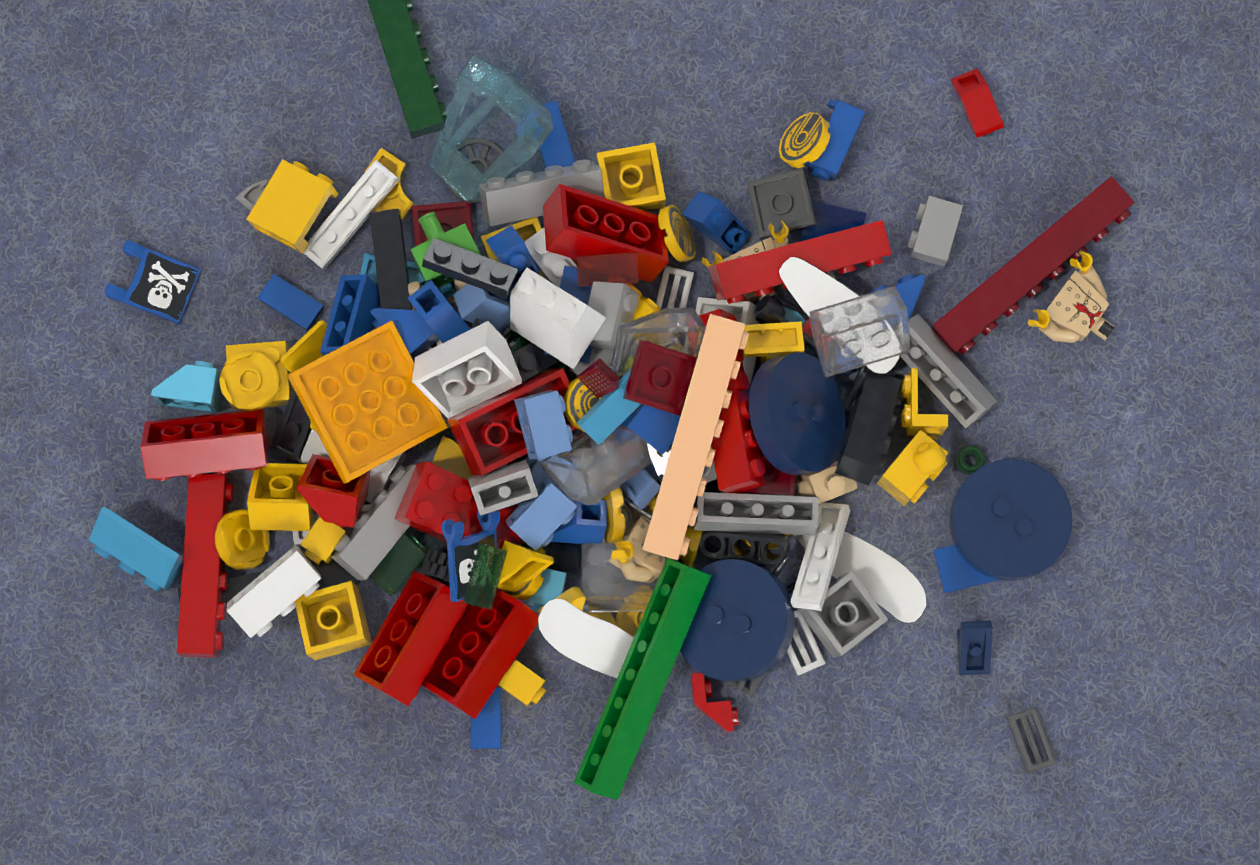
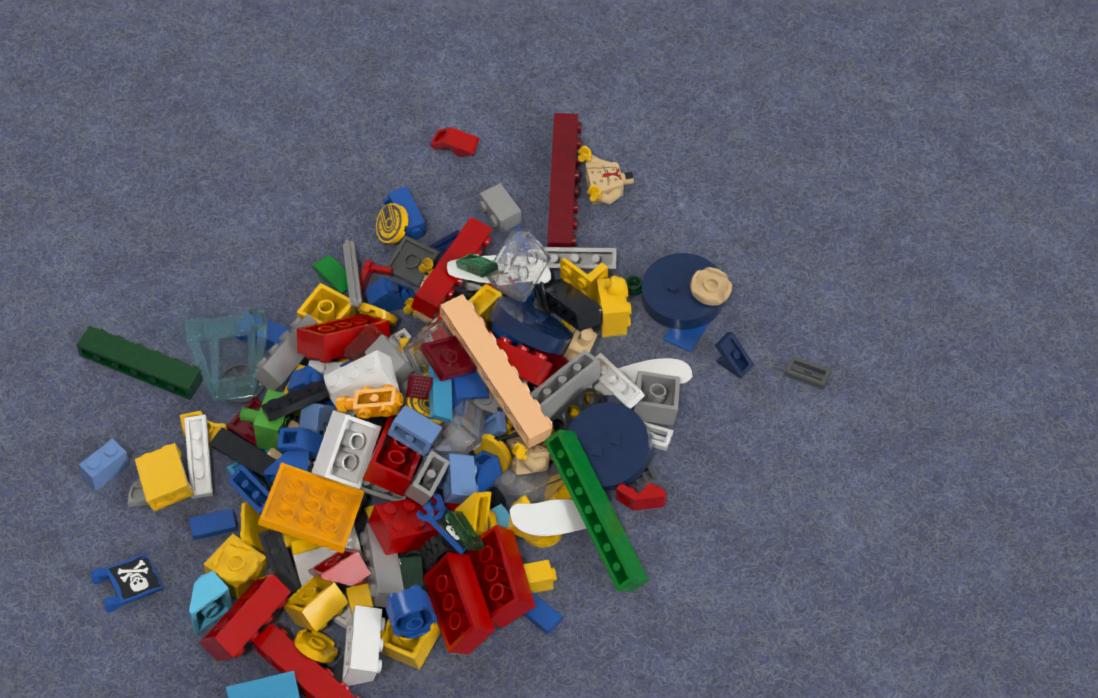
camera: 45 degrees left, 25 degrees down
(253, 133) = (104, 464): none -> medium blue brick
(340, 612) = (410, 612): none -> blue brick
(541, 355) = (372, 402): none -> light orange brick
(691, 138) = (333, 273): none -> green slope
(702, 160) = (352, 273): none -> light grey axle
(732, 166) = (370, 268): none -> red piece
(810, 294) = (477, 265): none -> clear green tile
(1035, 550) = (711, 286): none -> tan tile

